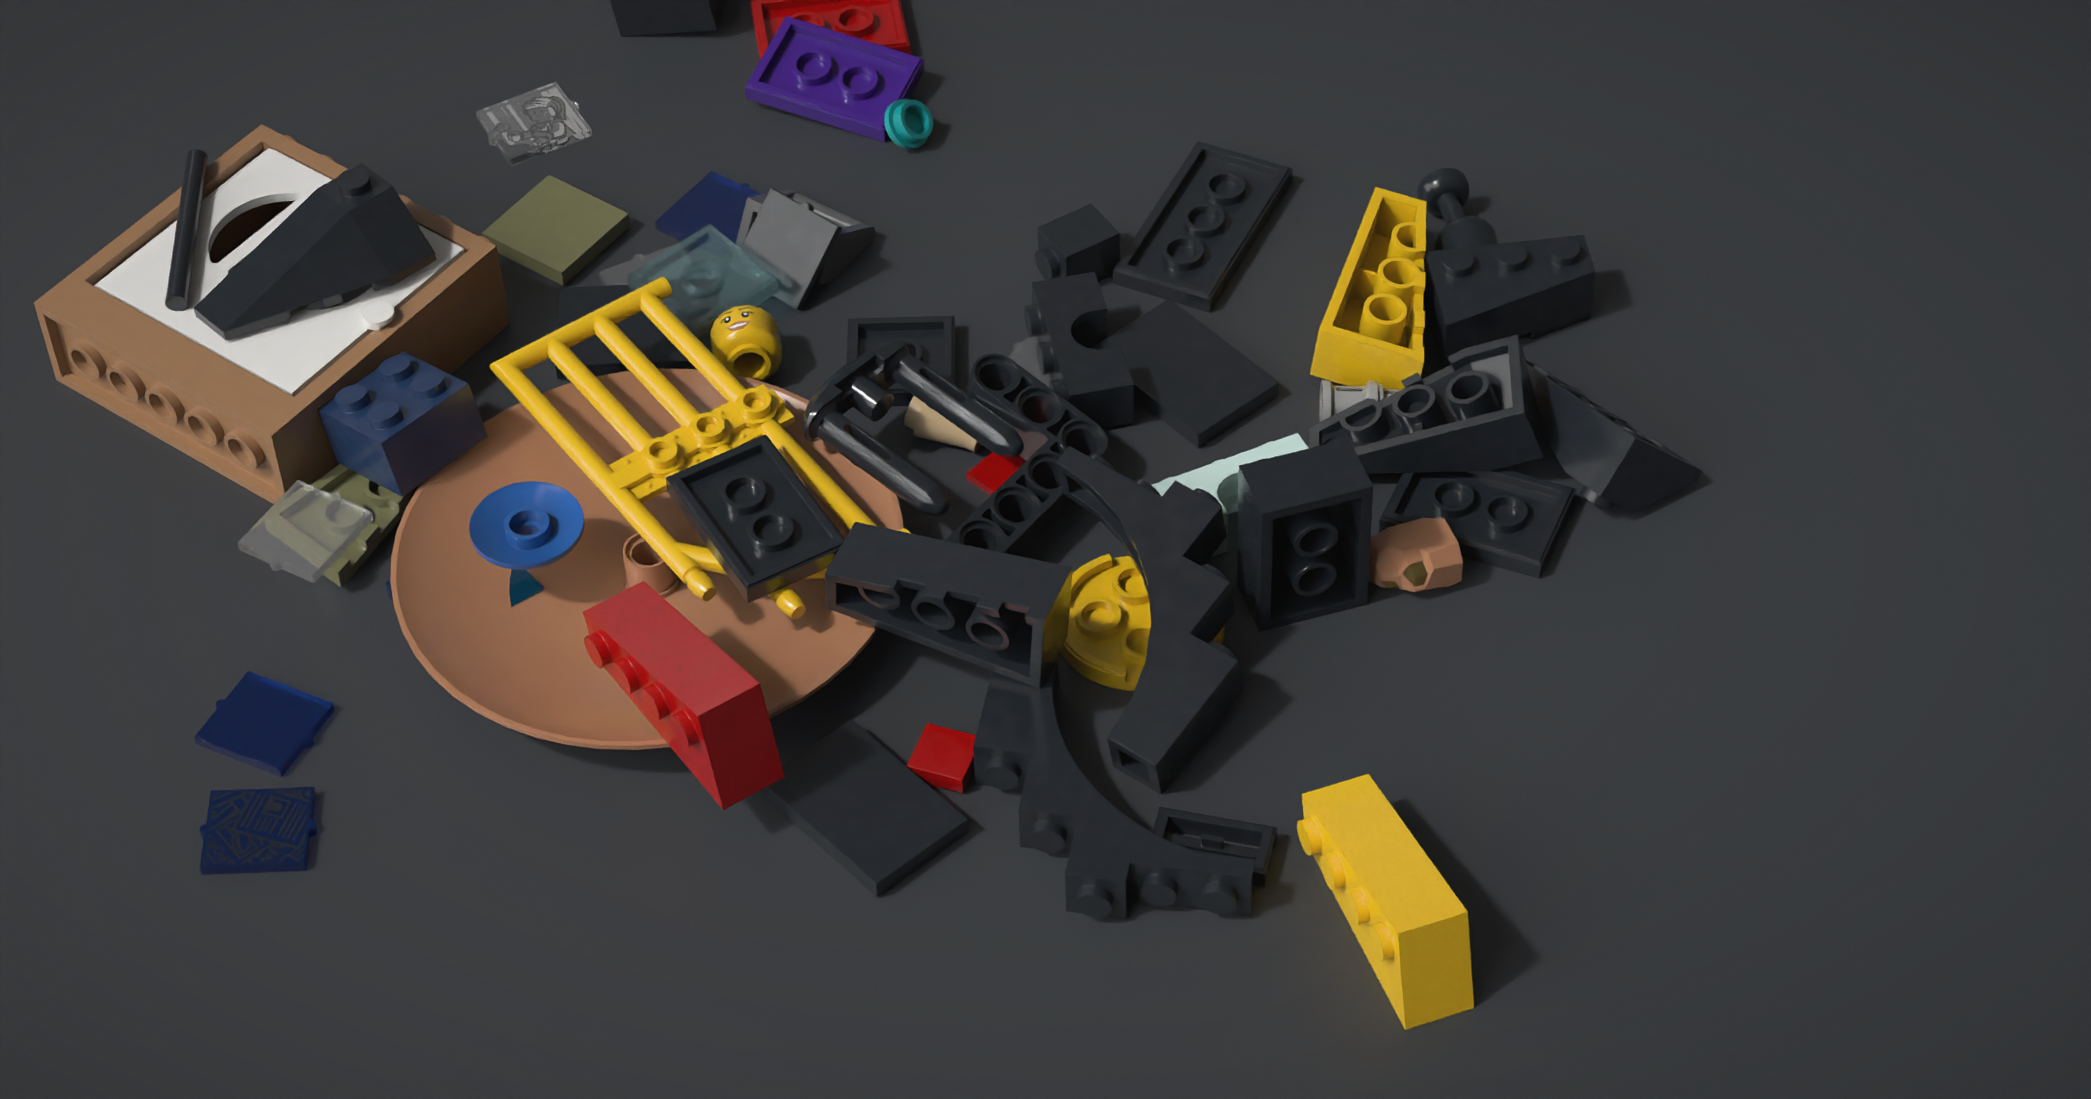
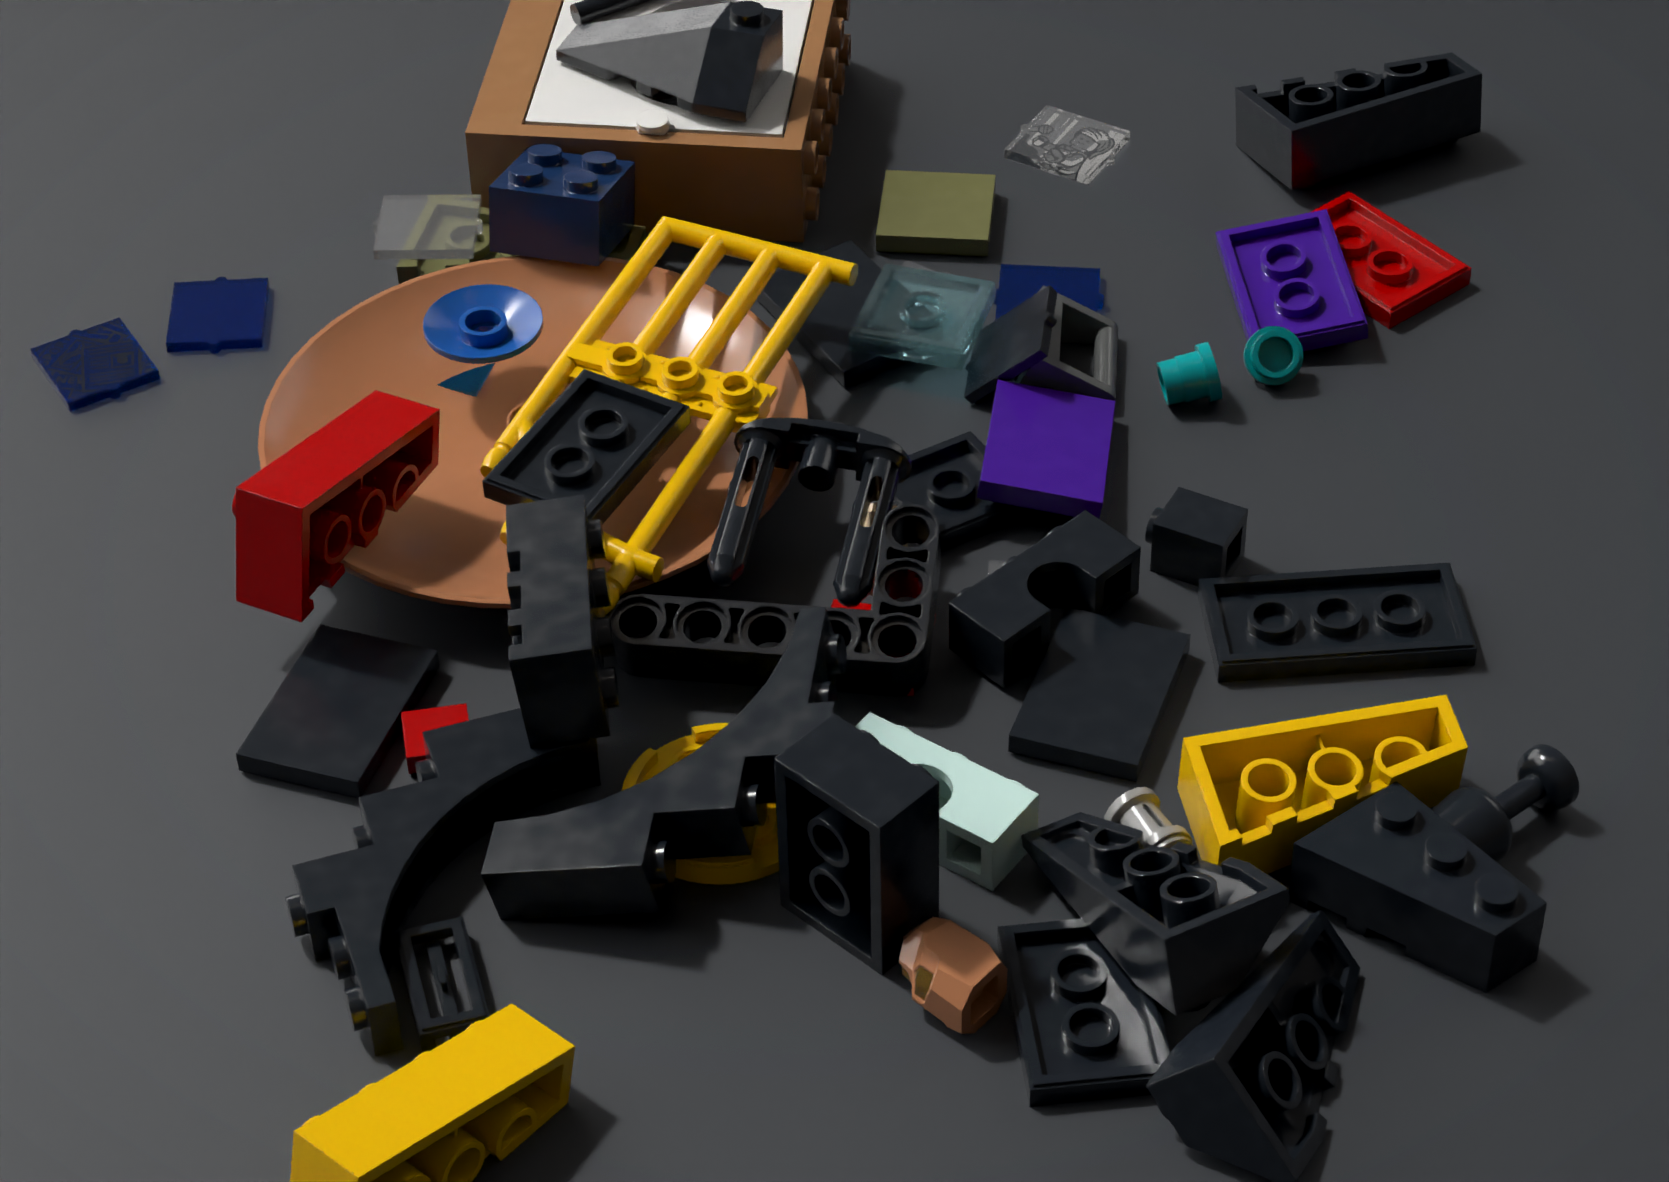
camera: 60 degrees right, 5 degrees down
(747, 342) = (867, 378): yellow head -> none
(894, 174) = (1190, 376): none -> teal piece
(912, 284) = (1047, 450): none -> dark purple tile

